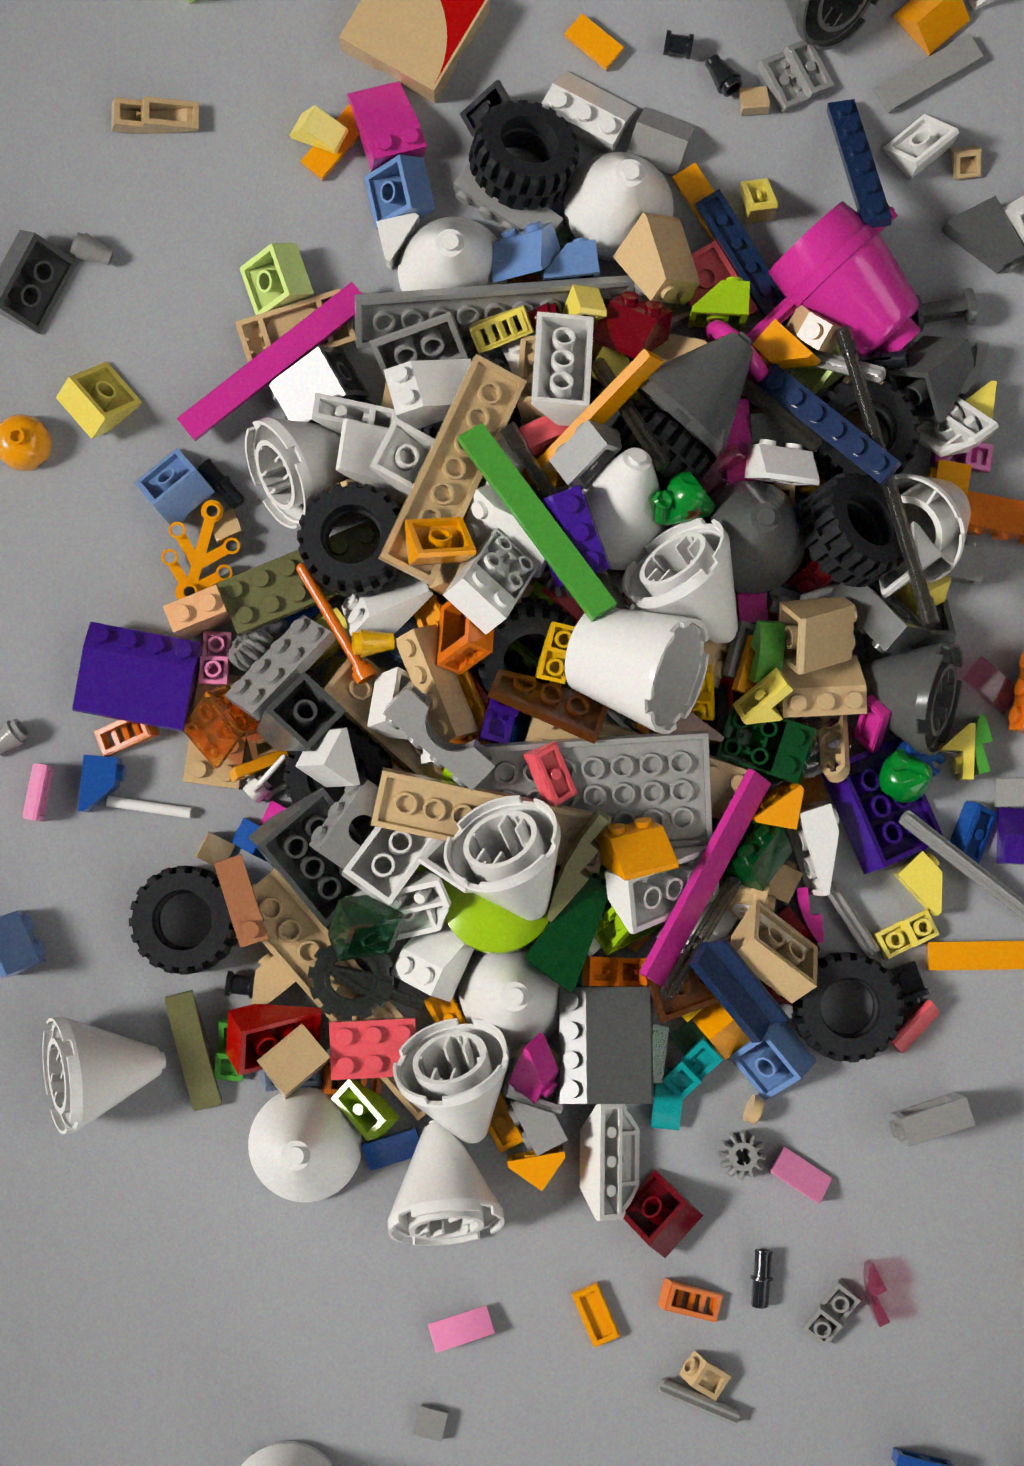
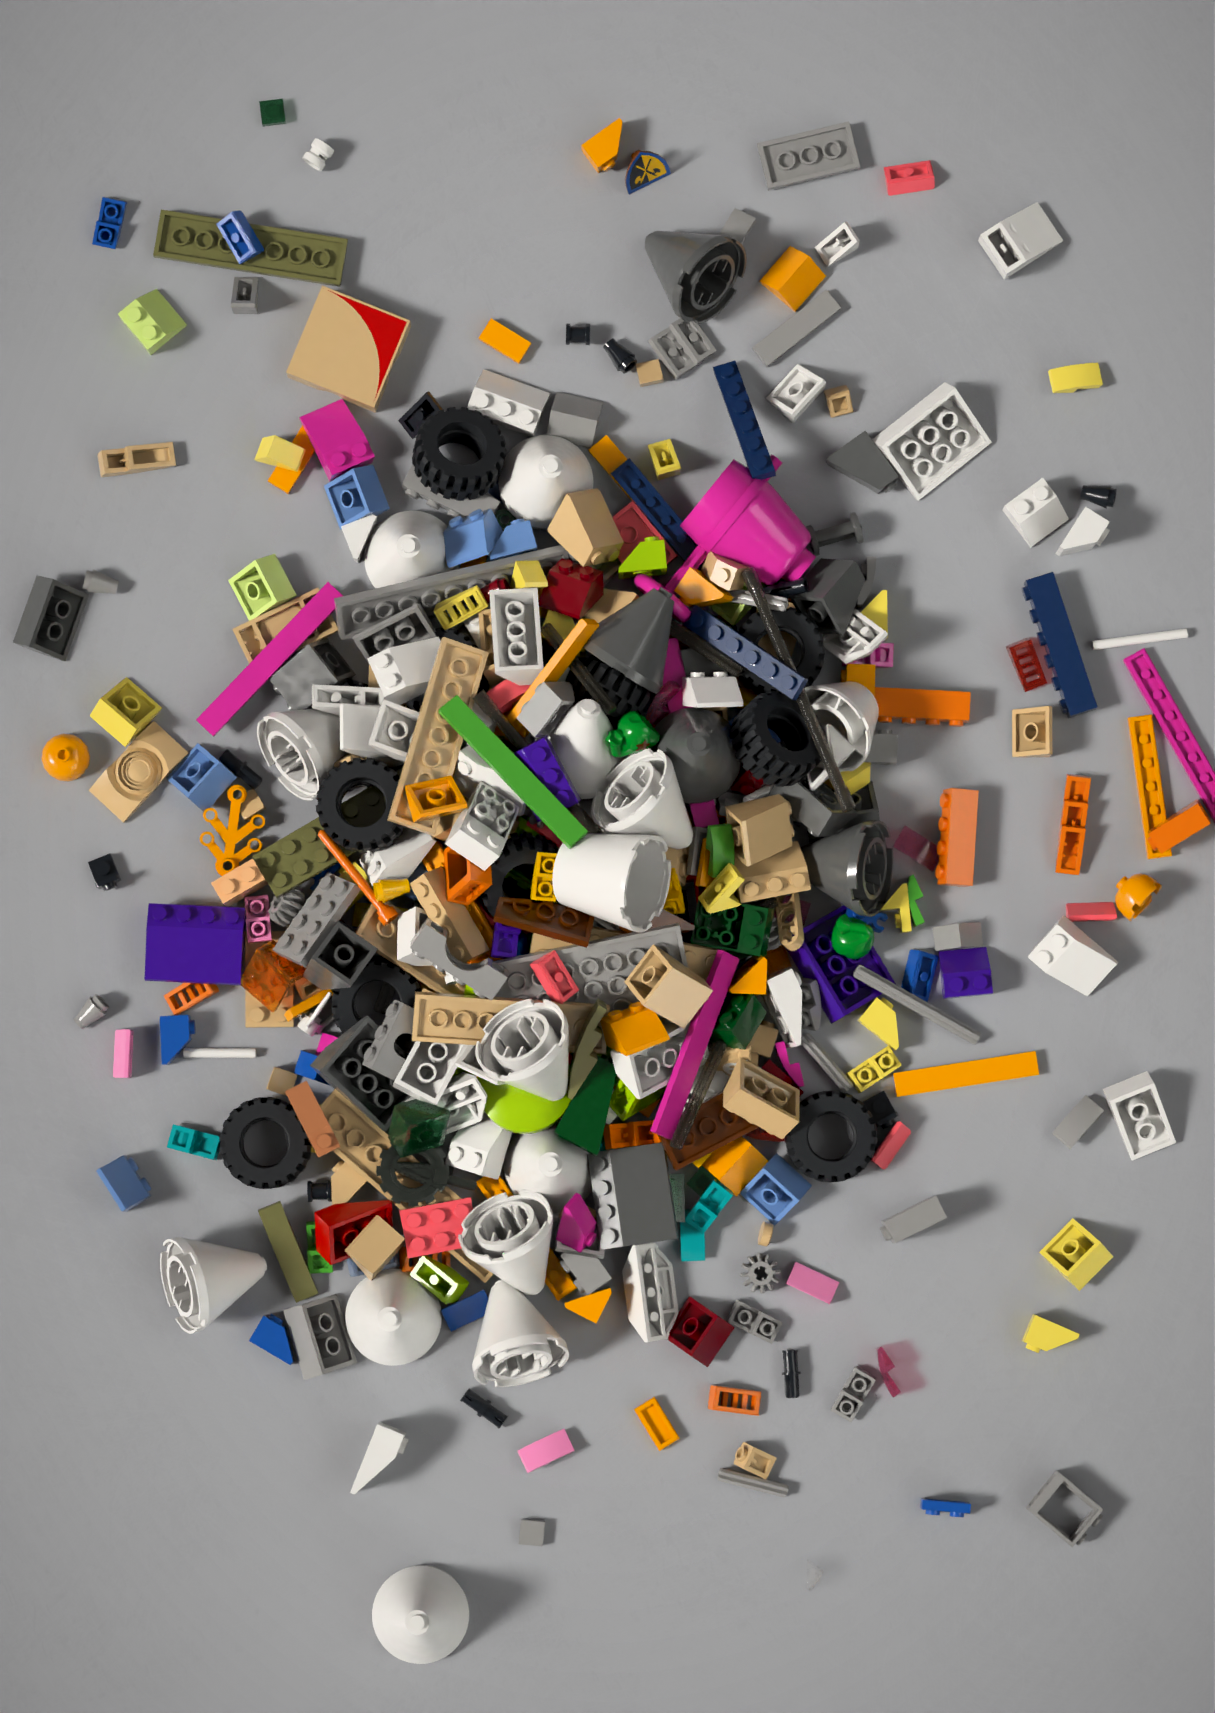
camera: 10 degrees left, 0 degrees up
(47, 580) = (104, 872): none -> black bracket
(103, 470) = (138, 771): none -> tan slope
(103, 906) = (194, 1142): none -> teal slope
(161, 1150) = (273, 1338): none -> blue slope
(216, 1156) = (320, 1336): none -> light grey slope
(273, 1296) = (382, 1449): none -> white slope
(331, 760) = (371, 992): white slope -> none
(395, 1267) = (484, 1408): none -> black pin
(684, 804) = (668, 987): none -> tan slope
(726, 1210) = (754, 1321): none -> light grey slope
(737, 988) = (734, 1133): dark blue panel -> none
(845, 848) = (810, 1004): none -> light grey slope
(872, 725) = (819, 897): dark pink tile -> none

